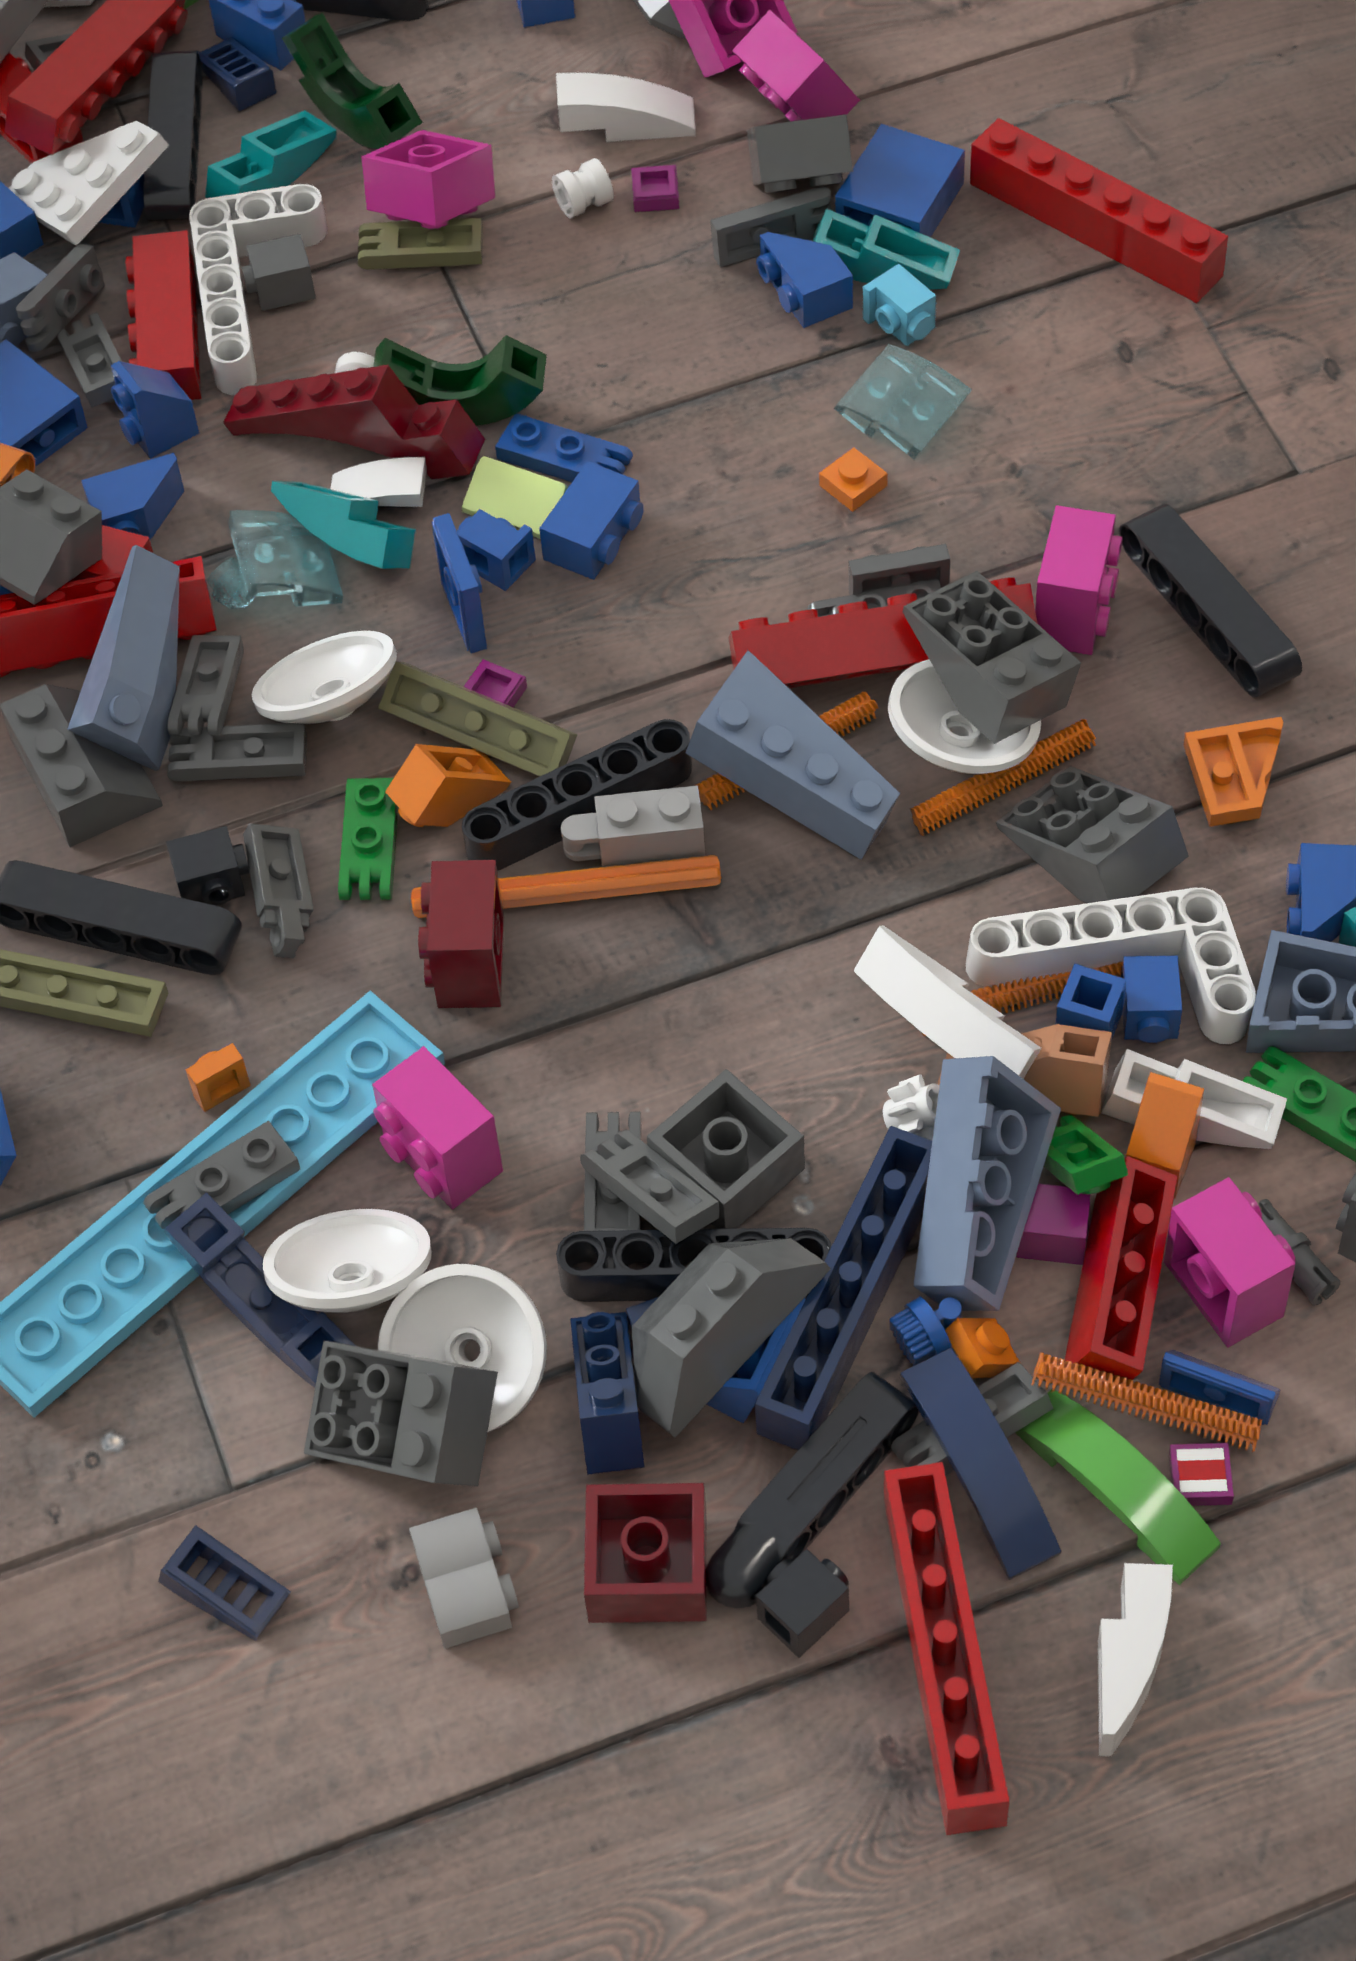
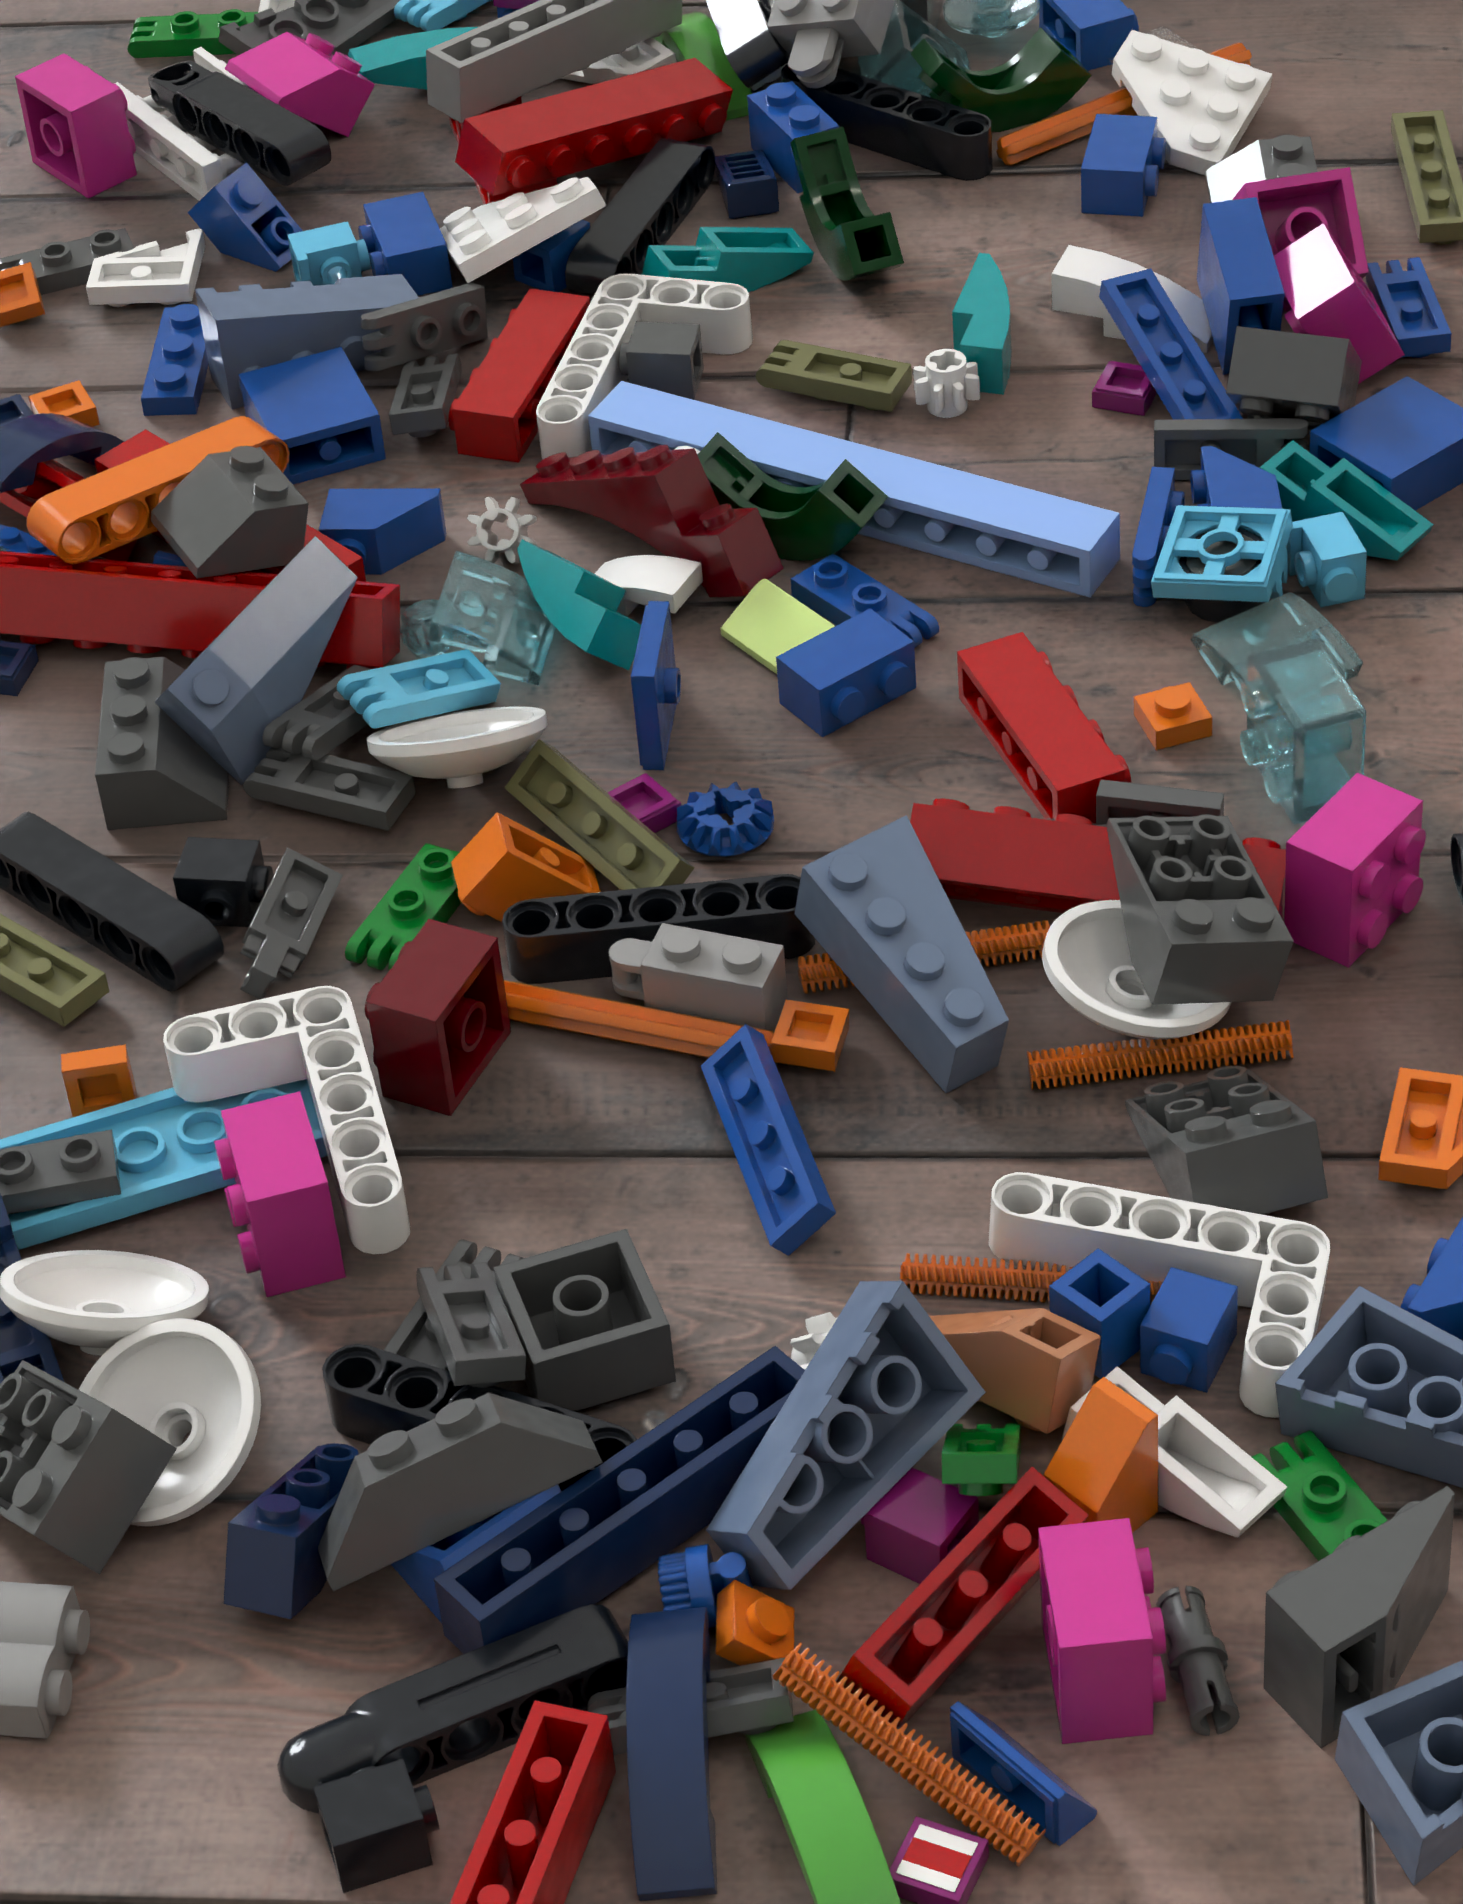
camera: 25 degrees right, 15 degrees down
(153, 408) = (452, 442): blue slope -> none
(248, 483) = (489, 539): none -> white gear
(265, 642) = (419, 688): none -> medium azure hinge
(428, 178) = (870, 309): dark pink brick -> none
(442, 1023) = (297, 1039): none -> white beam
(497, 548) = (726, 672): blue brick -> none
(517, 227) = (946, 383): none -> white gear
(520, 165) = (984, 324): none -> teal slope
(566, 697) = (707, 833): none -> blue gear
(579, 346) = (926, 505): none -> light blue brick
(580, 189) = (1041, 364): white wheel -> none
(645, 1553) = (224, 1700): dark red brick -> none
(683, 151) = (1165, 348): none -> blue plate
(713, 75) = (1237, 273): none -> blue brick
(743, 848) = (810, 1035): none -> orange plate
(760, 325) = (1152, 530): none -> blue hinge
(763, 948) = (767, 1140): none -> blue plate
(767, 526) = (1037, 726): none -> red brick
(829, 331) = (1223, 559): none -> medium azure piece
(840, 50) = (1410, 307): none -> blue hinge
(940, 1003) = (920, 1245): white slope -> none
(975, 470) = (1301, 727): none -> clear light blue brick

